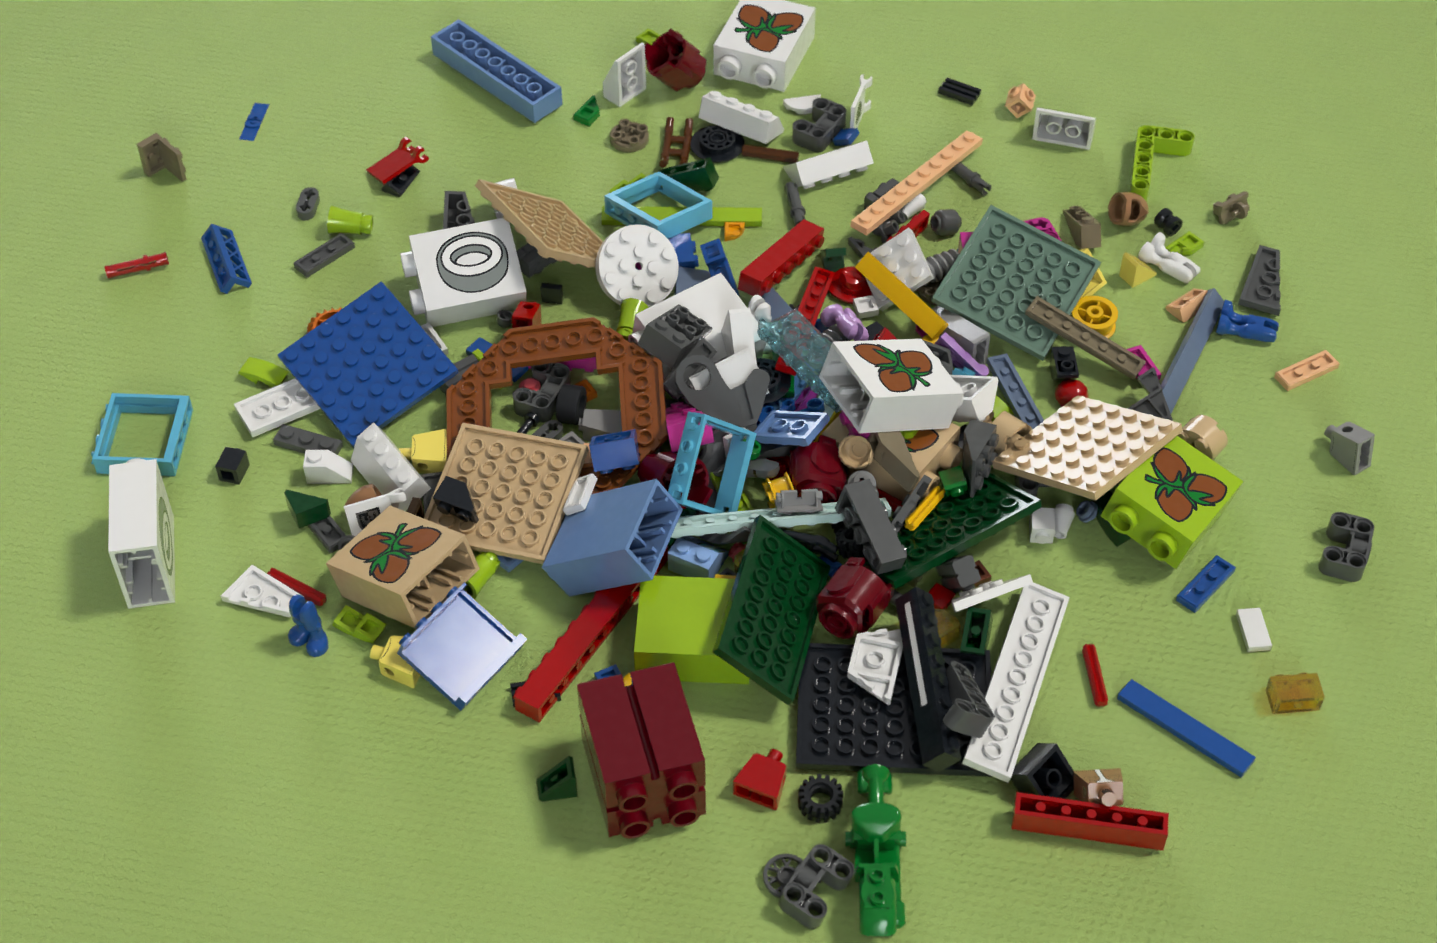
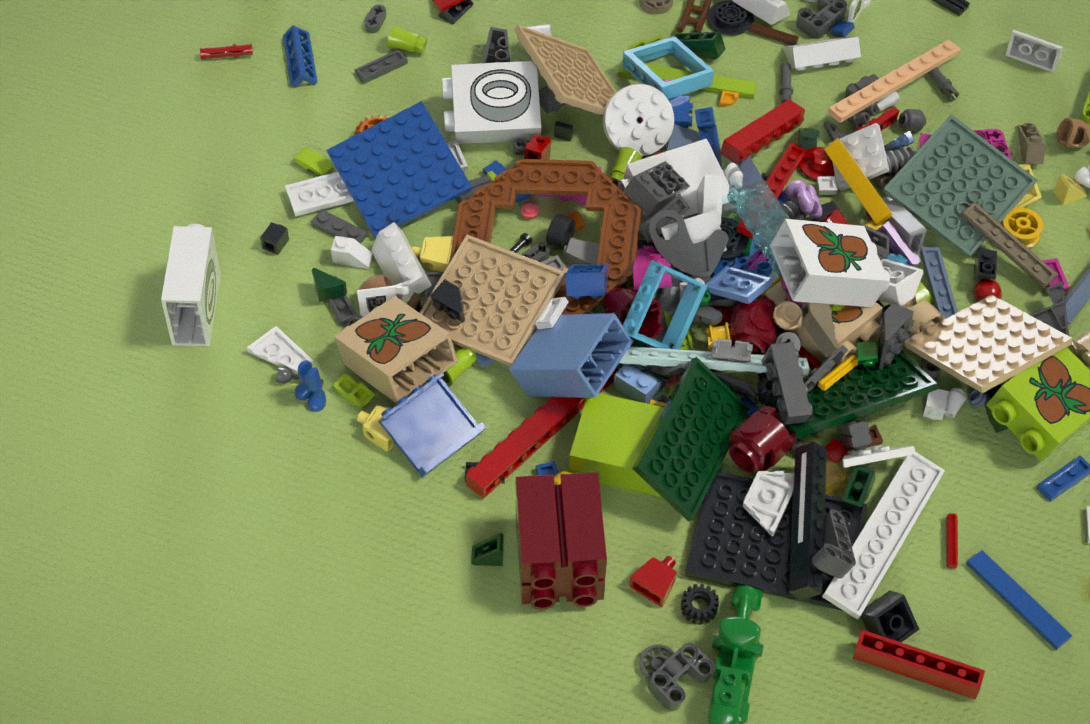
camera: 10 degrees right, 5 degrees up
(144, 403) = (212, 173): medium azure window -> none
(273, 620) = (285, 376): none -> dark grey hinge
(305, 590) = (314, 354): red axle -> none
(542, 401) = (538, 225): dark grey beam -> none
(940, 245) = (900, 142): none -> medium blue hinge
(1020, 100) = (1001, 19): light nougat brick -> none
(1100, 785) = (933, 637): medium nougat torso -> none

